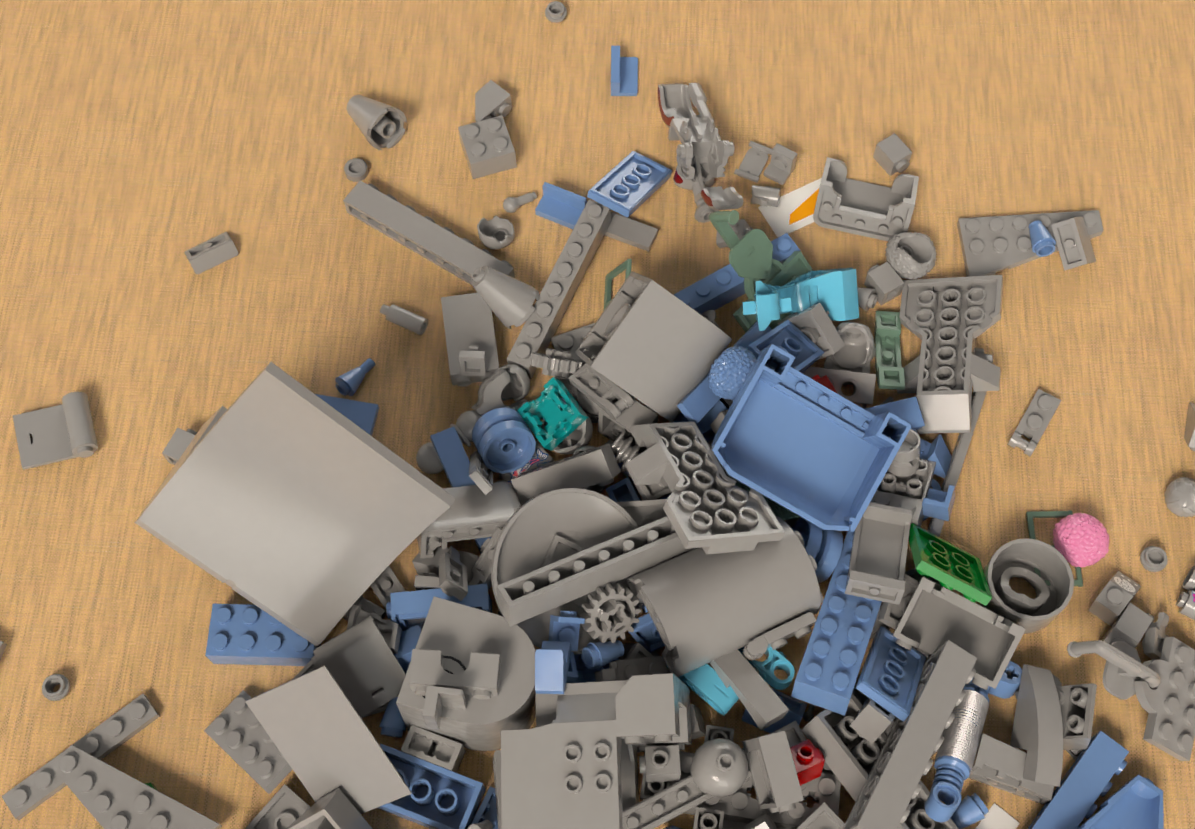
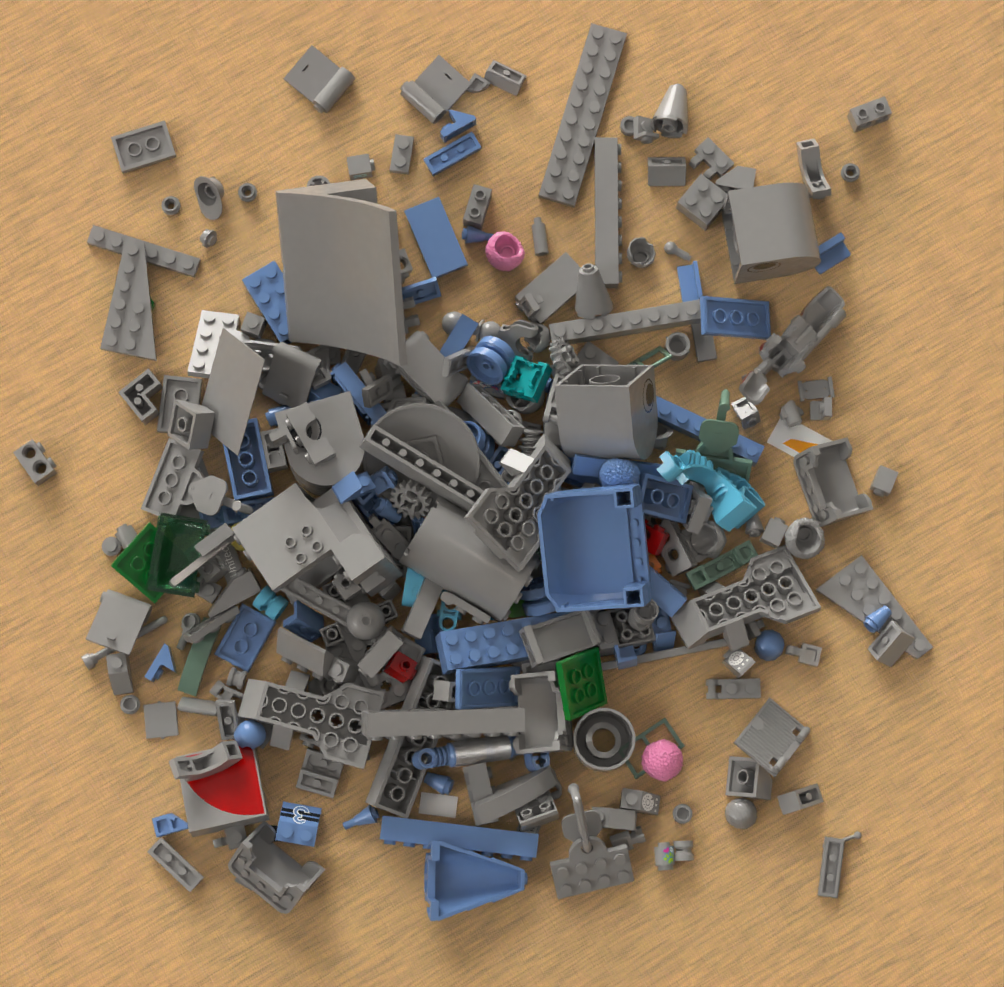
camera: 55 degrees right, 15 degrees up
(81, 634) = (209, 196): none -> light grey piece
(107, 585) = (247, 186): none -> light grey plate
(127, 667) = (208, 238): none -> light grey plate
(166, 323) = (435, 89): none -> light grey door
(195, 281) = (478, 83): none -> light grey tile
(203, 397) = (401, 154): none -> light grey plate
(221, 321) = (461, 123): none -> medium blue slope
(247, 348) = (452, 153): none -> medium blue plate
(267, 676) = (254, 325): none -> light grey brick
(312, 206) = (582, 115): none -> light grey plate
(323, 356) = (477, 206): none -> light grey brick
(372, 157) = (643, 130): none -> light grey bracket
(393, 357) = (504, 251): none -> bright pink hair
(430, 162) = (666, 171): none -> light grey panel
(446, 116) = (713, 157): none -> light grey plate
(530, 40) = (811, 169): none -> light grey arch
(565, 98) = (770, 232): none -> light grey brick
(618, 251) = (677, 345): none -> light grey piece
(1008, 357) = (769, 645): none -> medium blue hair
(1013, 396) = (737, 662): none -> light grey slope
(1036, 327) = (807, 654): none -> light grey plate
(1119, 414) = (771, 737): none -> light grey window
(1149, 465) = (748, 779): none -> light grey slope

